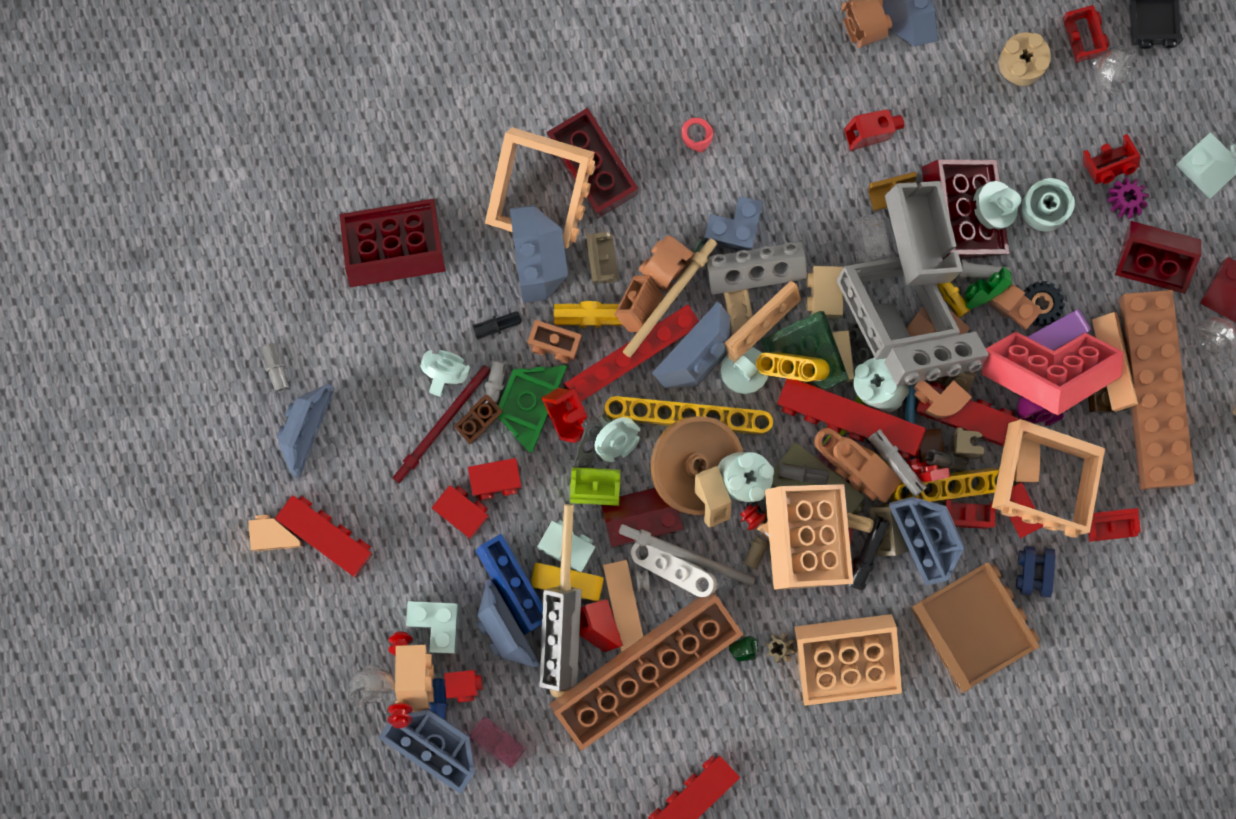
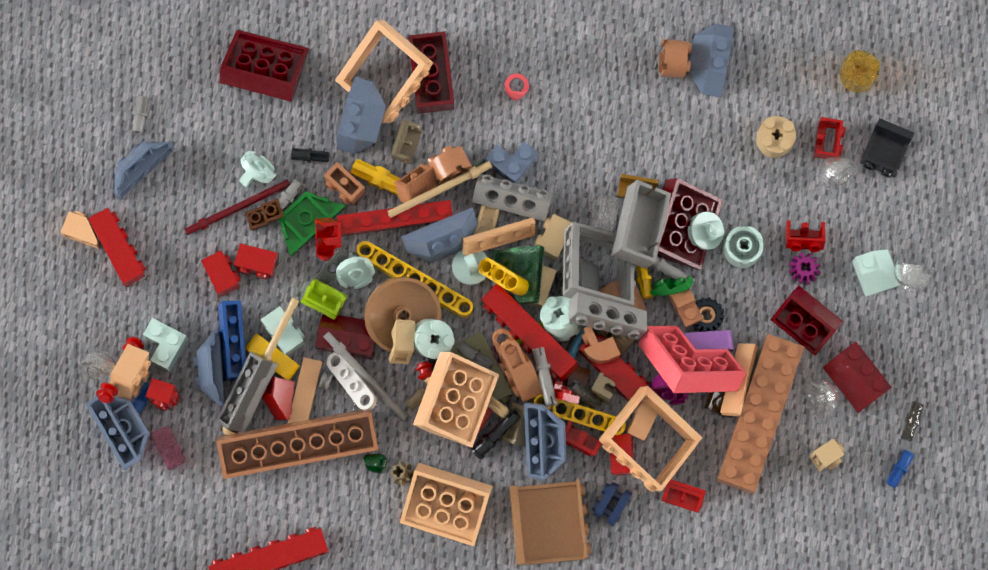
camera: 20 degrees right, 5 degrees down
(872, 128) = (636, 137): red torso -> none

